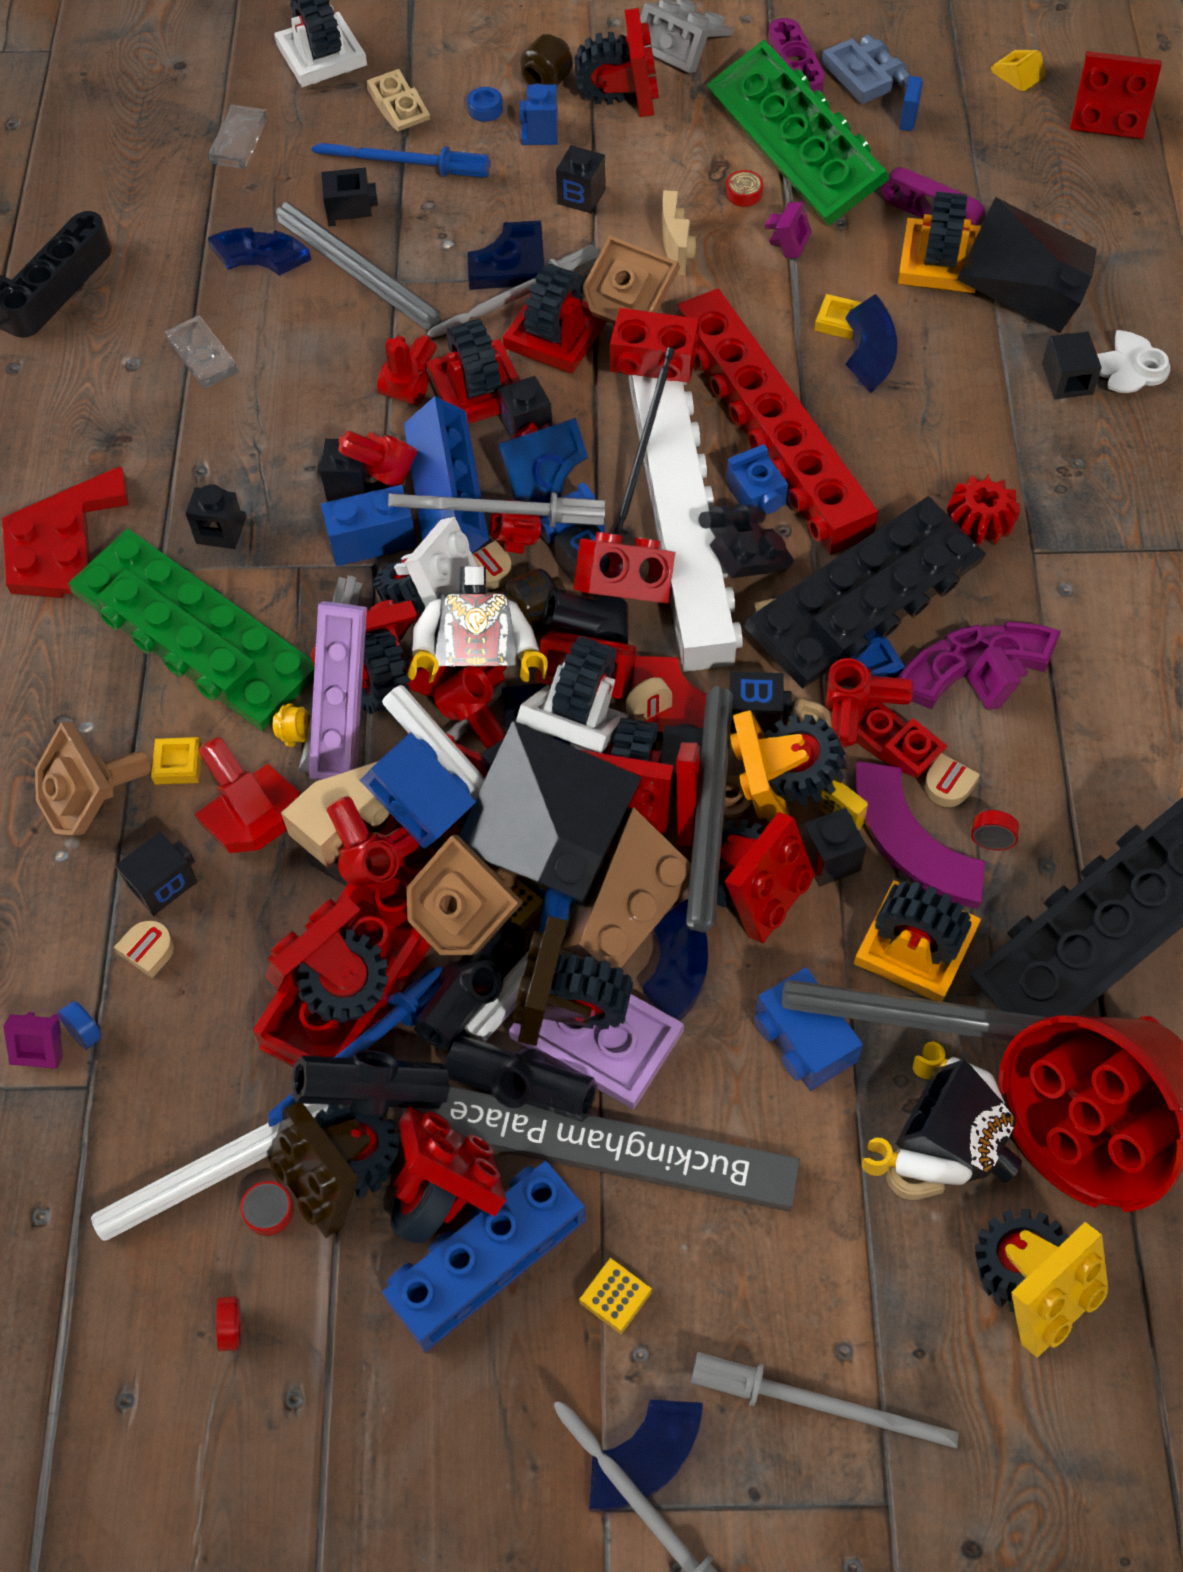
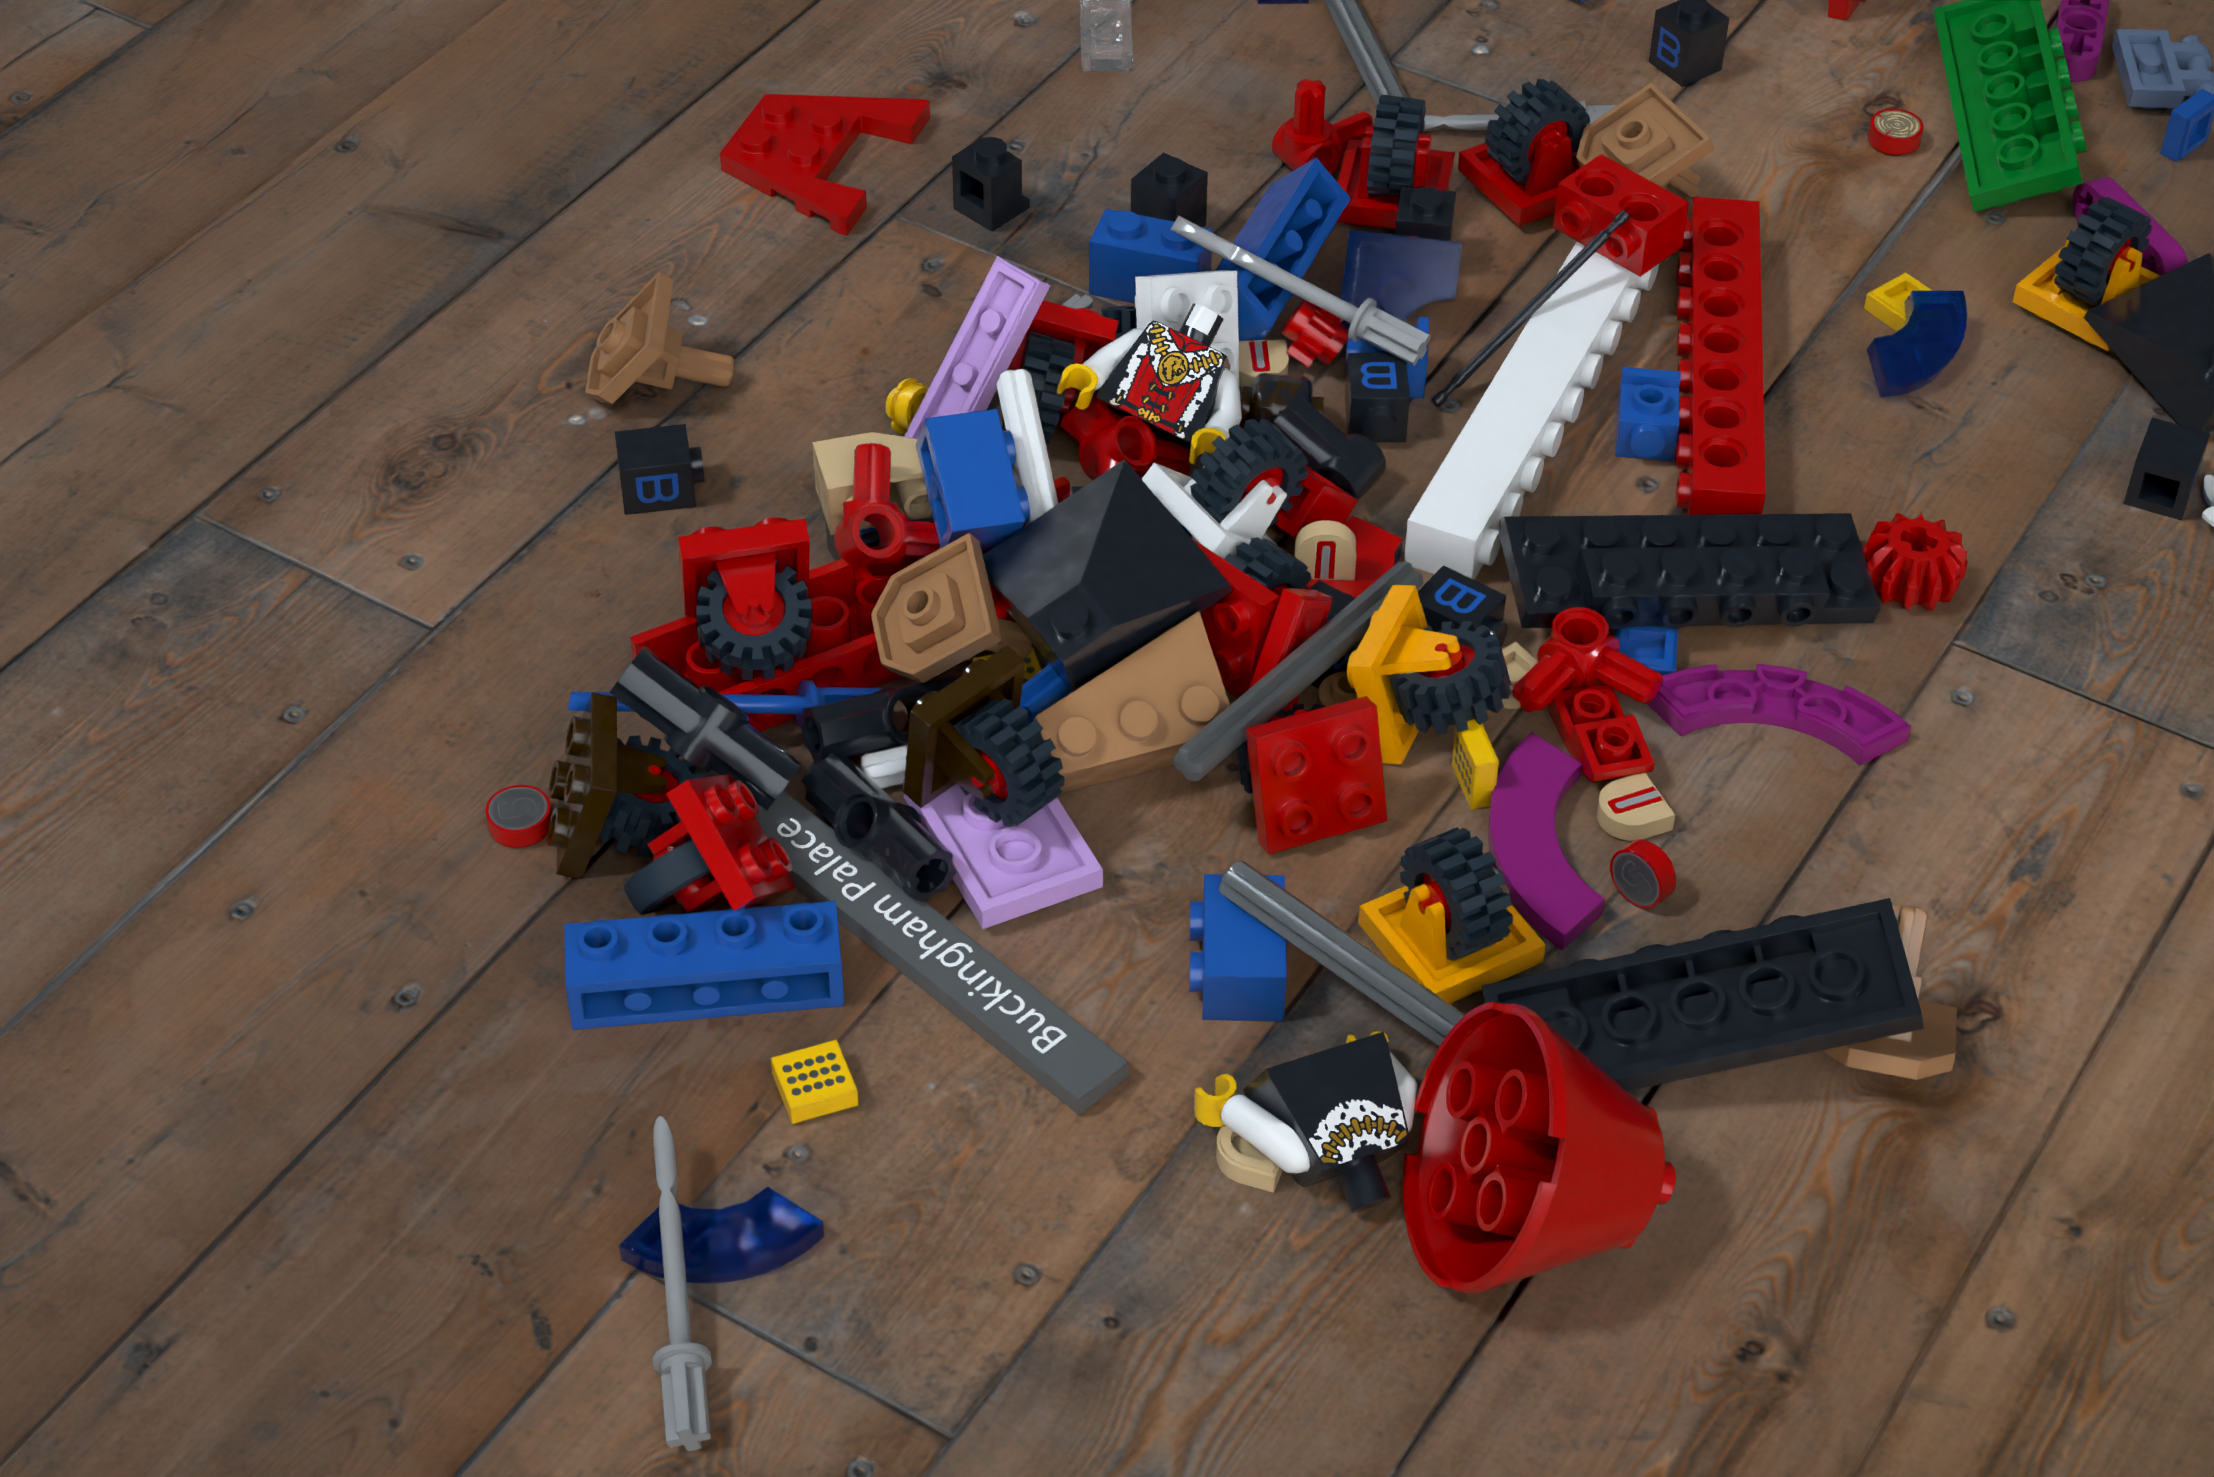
camera: 30 degrees right, 15 degrees down
(33, 1040) = (411, 552): magenta tile -> none
(79, 1024) = (467, 561): blue tile -> none
(146, 947) = (593, 533): tan tile -> none
(176, 760) = (764, 388): yellow tile -> none
(189, 1180) = (453, 750): white axle -> none
(193, 629) = (873, 268): green plate -> none
(228, 1323) = (393, 885): red tile -> none
(249, 804) = (788, 460): red piece -> none
(384, 458) = (1216, 200): red axle -> none
(509, 260) = (1573, 72): clear blue tile -> none
(623, 574) = (1393, 427): red brick -> none
(675, 232) = (1764, 132): tan slope -> none
(681, 964) = (1155, 827): clear blue tile -> none
(748, 1383) = (894, 1234): light grey piece -> none
(749, 548) = (1570, 468): black plate -> none
(791, 229) = (1915, 190): magenta tile -> none
(833, 846) = (1423, 790): black brick -> none
(996, 677) = (1781, 730): magenta tile -> none
(1042, 1274) = (1311, 1310): yellow plate -> none

